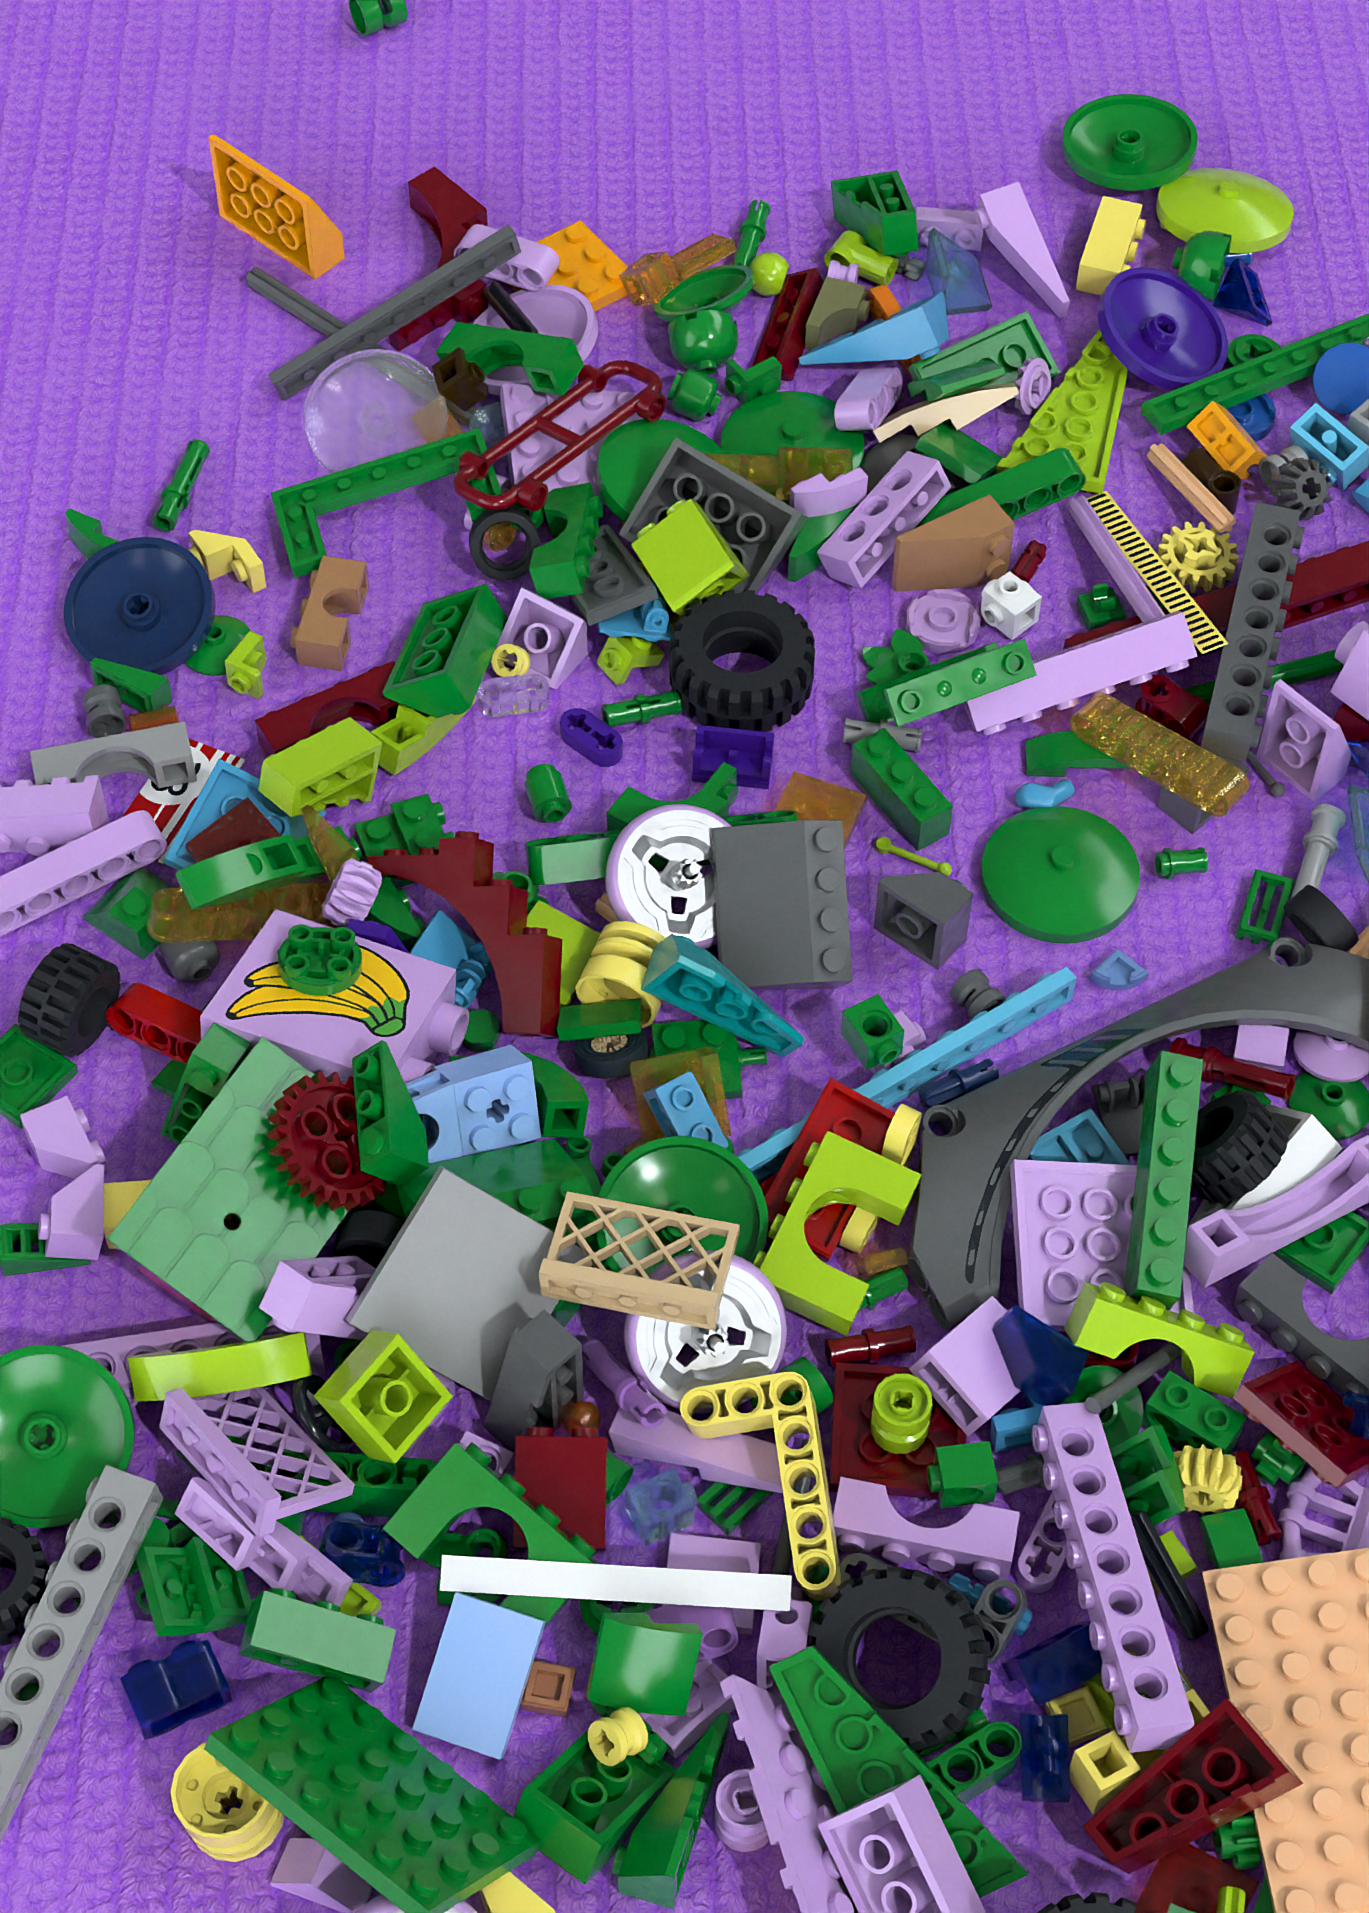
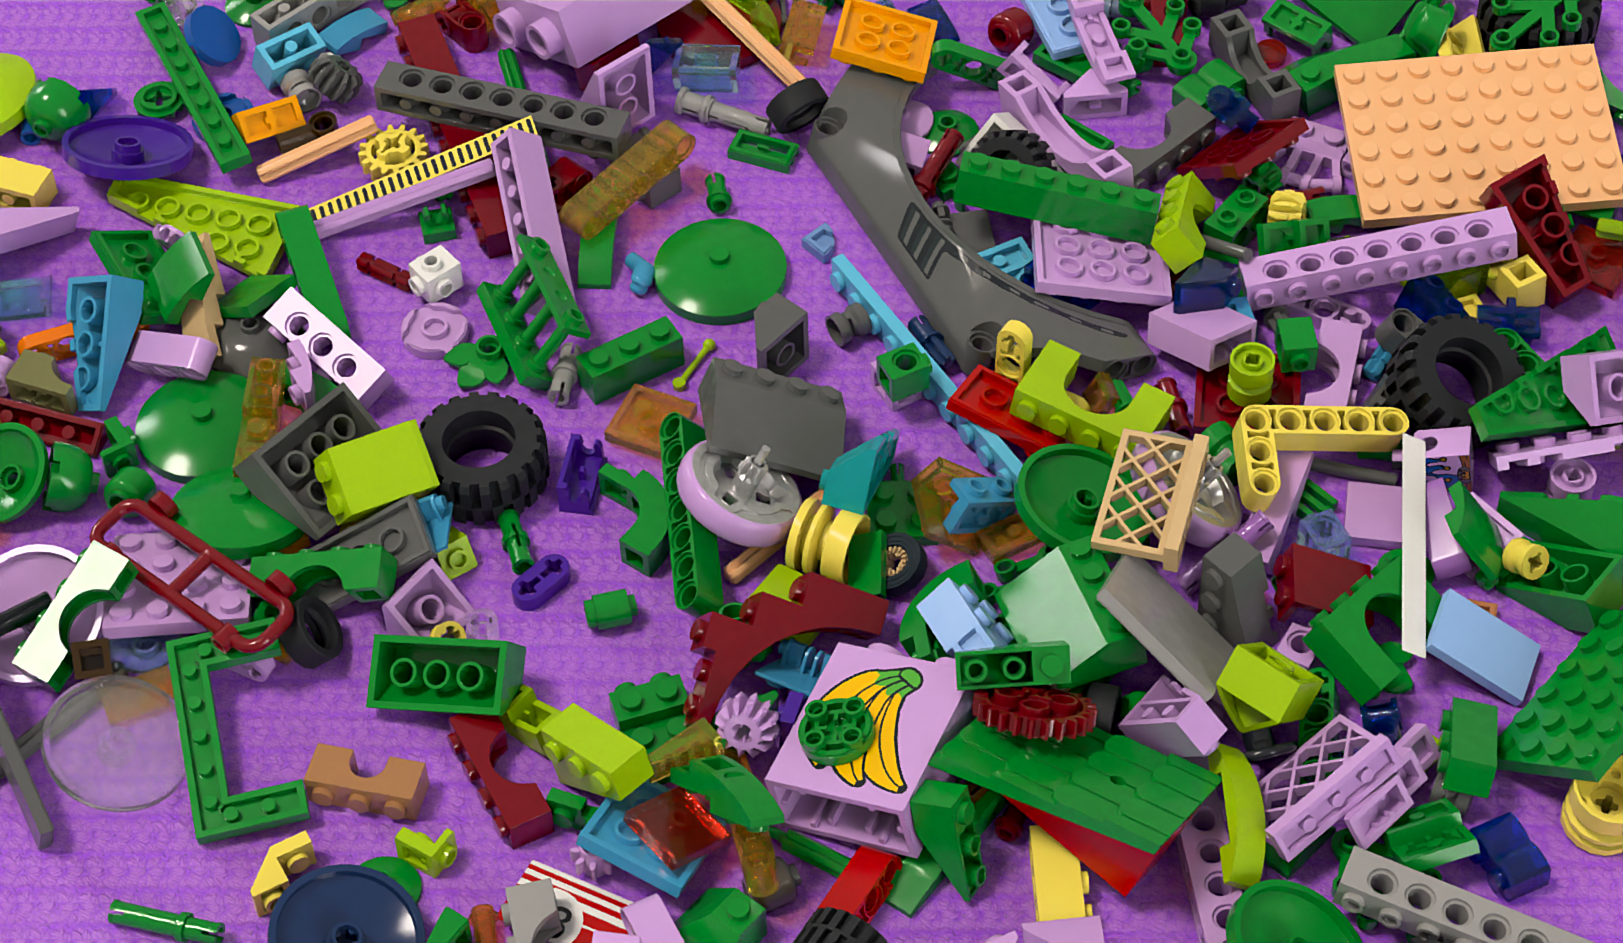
camera: 85 degrees left, 5 degrees down
(955, 549) = (369, 294): medium nougat slope -> none

